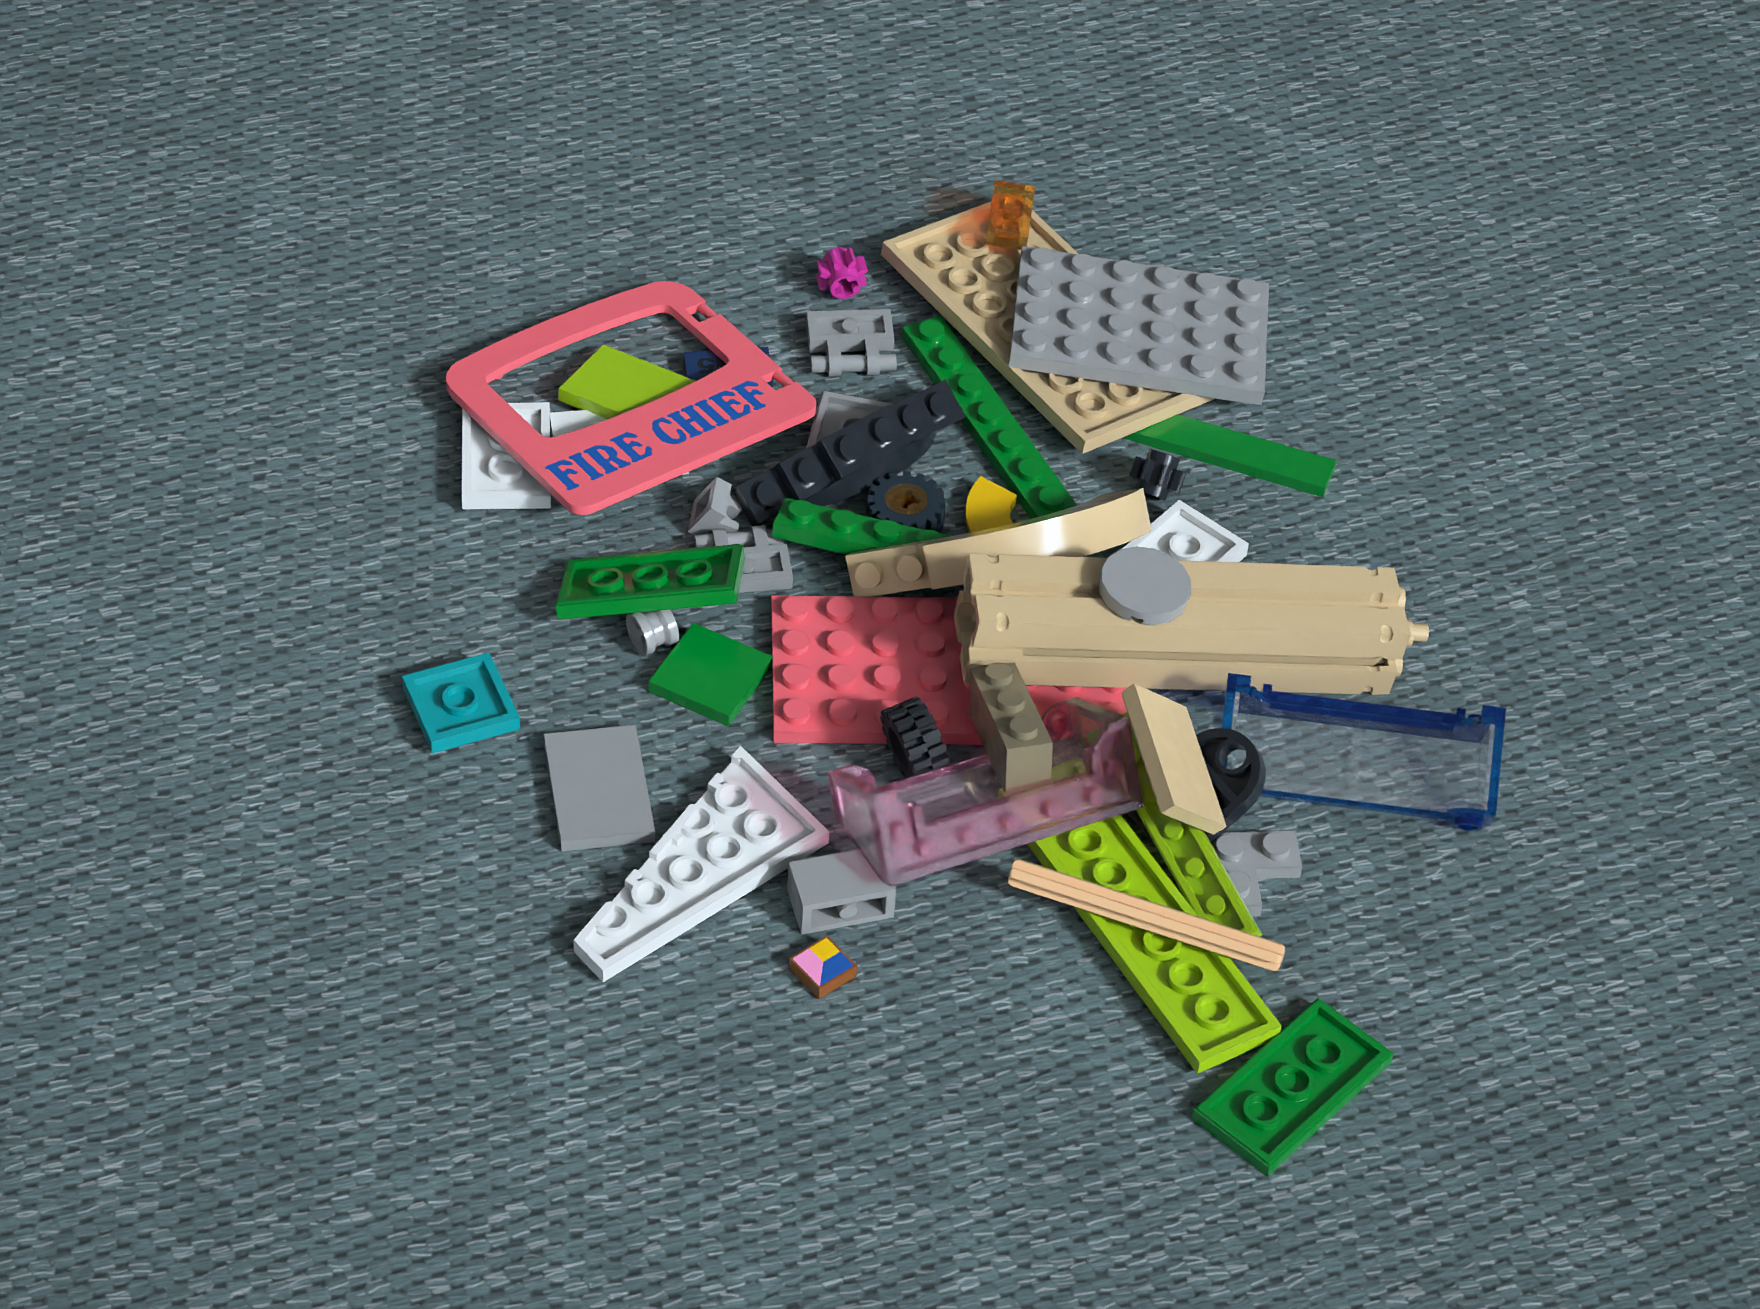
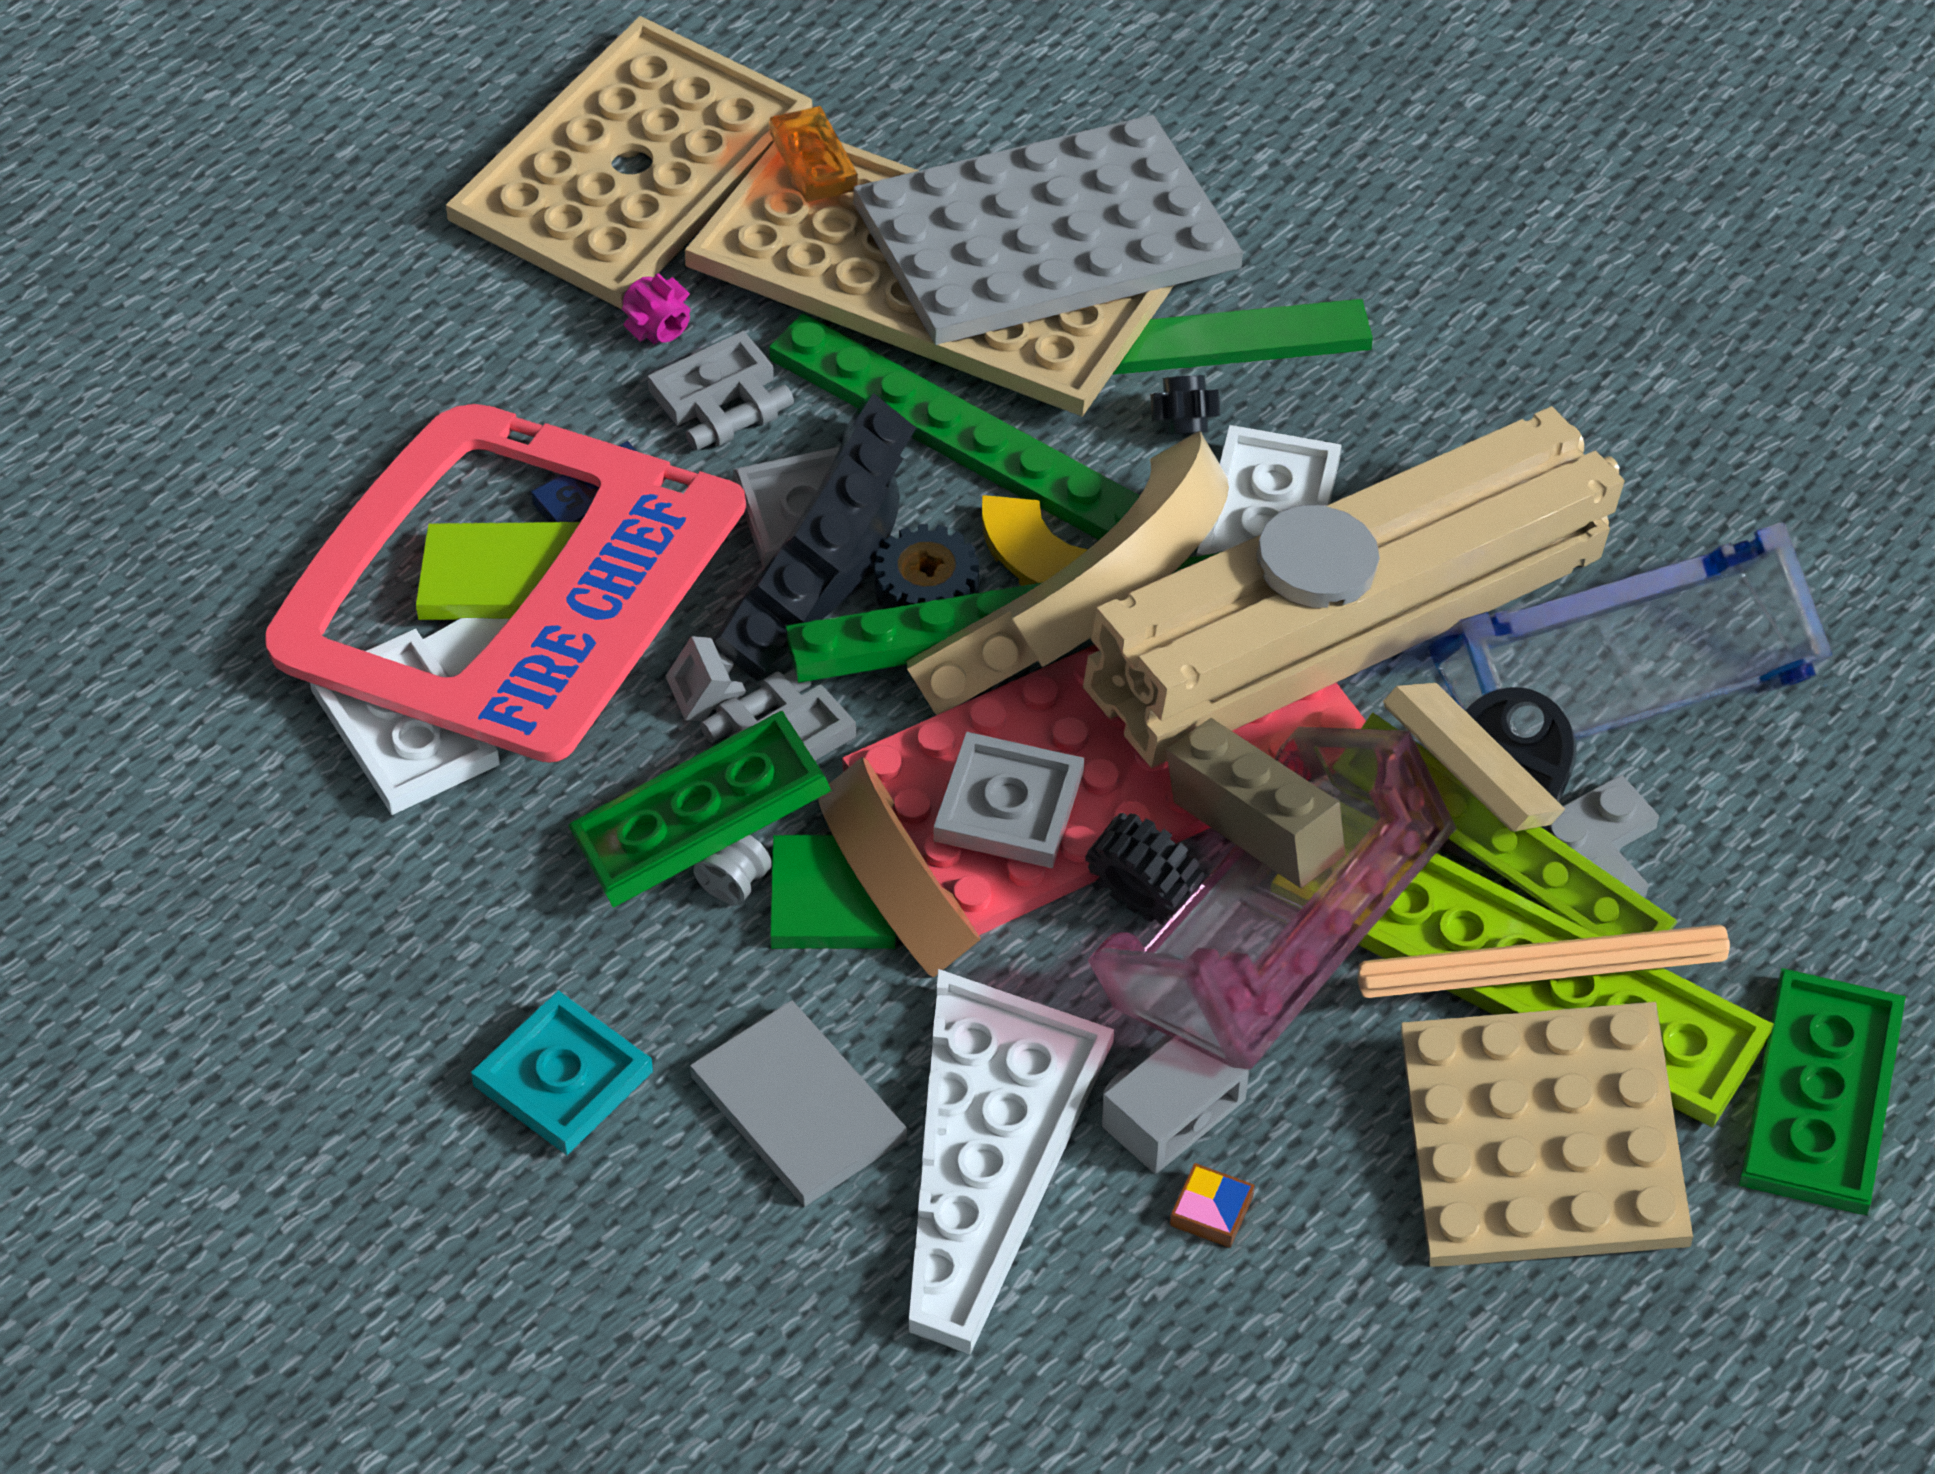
camera: 25 degrees left, 5 degrees up
(750, 676) = (893, 869): none -> medium nougat slope
(832, 183) = (647, 93): none -> tan plate
(854, 661) = (1009, 799): none -> light grey plate
(1072, 1022) = (1545, 1135): none -> tan plate

